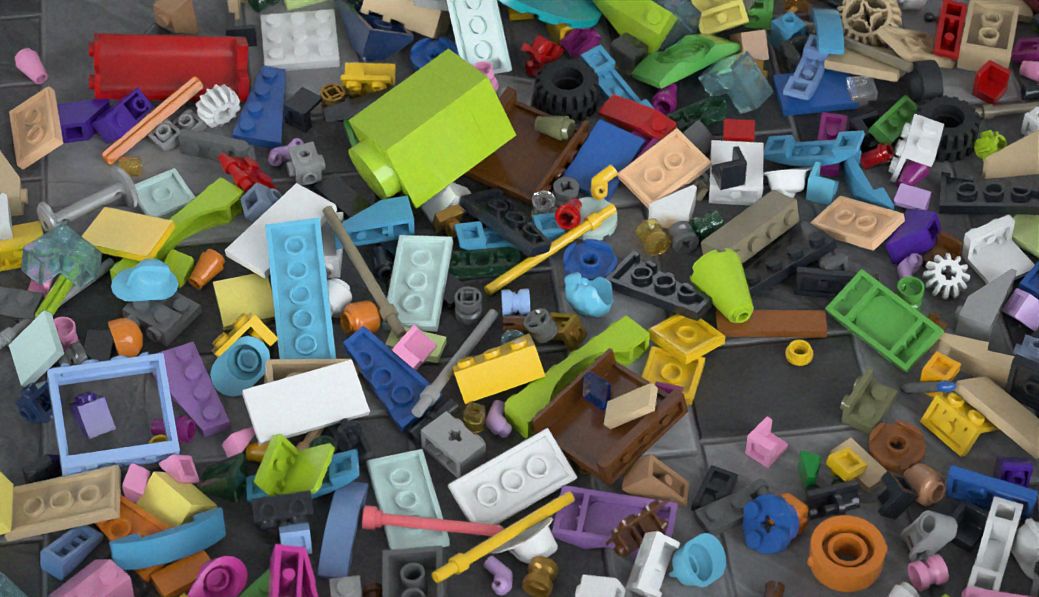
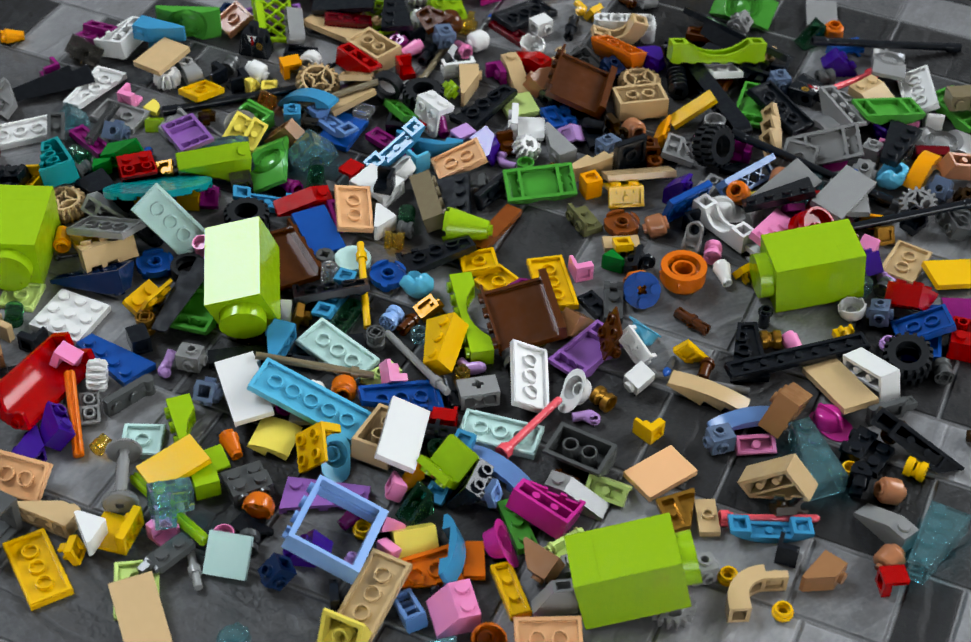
camera: 60 degrees left, 5 degrees down
(146, 281) = (224, 472): medium azure piece -> none
(221, 65) = (67, 353): none -> bright pink panel
(244, 172) = (165, 387): red plate -> none
(383, 435) = (448, 416): none -> red brick
(461, 562) = (581, 417): yellow bar -> none
(540, 325) = (422, 307): dark grey wheel -> none
(543, 52) = (208, 215): red hips -> none
(556, 126) = (280, 232): olive cone -> none
(569, 214) = (350, 260): red cone -> none
(596, 390) = (498, 306): clear blue tile -> none
(599, 182) = (339, 243): yellow arm -> none
(631, 406) = (530, 296): tan tile -> none
(716, 429) = (558, 277): none -> yellow tile
(799, 353) = (527, 227): yellow plate -> none
(896, 496) = (656, 238): black panel -> none
(928, 387) = (605, 182): dark grey piece -> none

